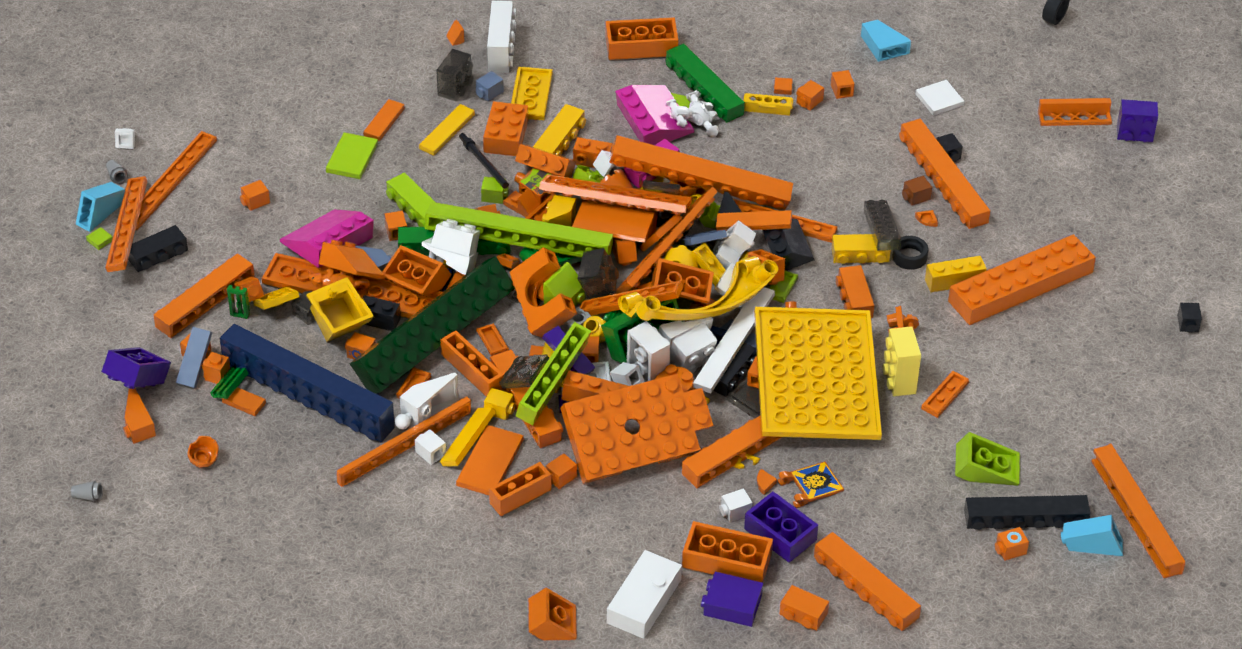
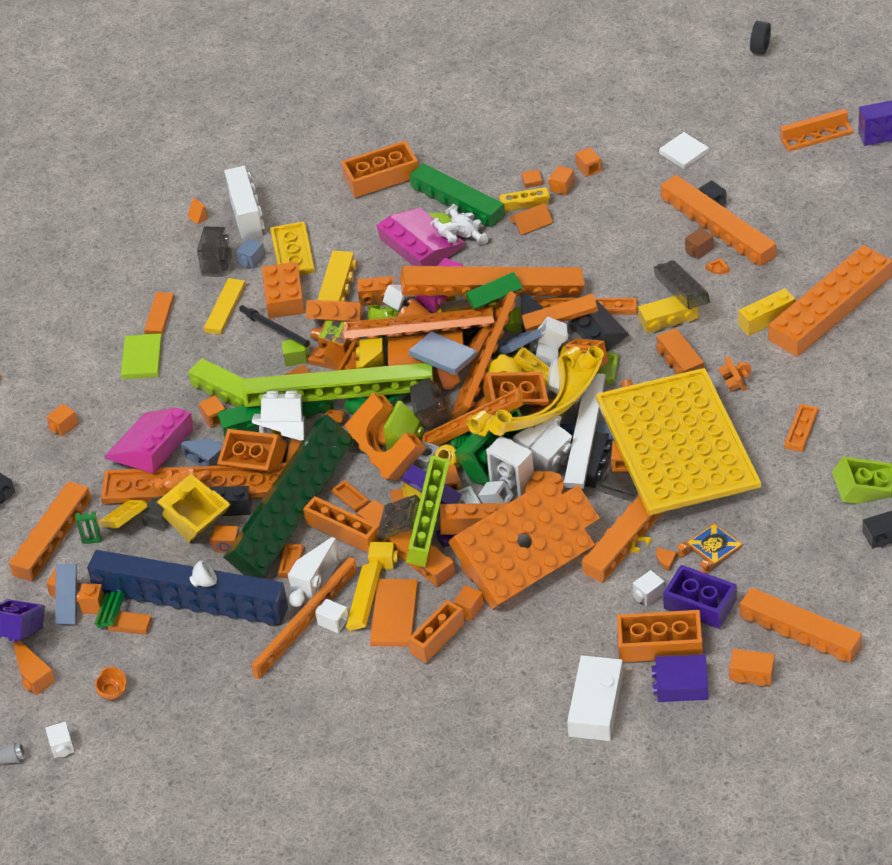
camera: 10 degrees left, 0 degrees up
(137, 490) = (59, 740): none -> white brick
(253, 286) = (95, 506): orange brick -> none
(320, 374) = (203, 575): none -> white brick
(348, 259) = (182, 456): orange slope -> none
(551, 616) = (514, 745): orange slope -> none
(626, 228) = (443, 353): none -> tile
(697, 182) = (493, 291): none -> green tile
(767, 124) = (532, 219): none -> orange panel
(884, 41) = (611, 110): medium azure slope -> none
(902, 361) = (753, 407): light yellow brick -> none
(907, 262) = (717, 313): black tyre -> none

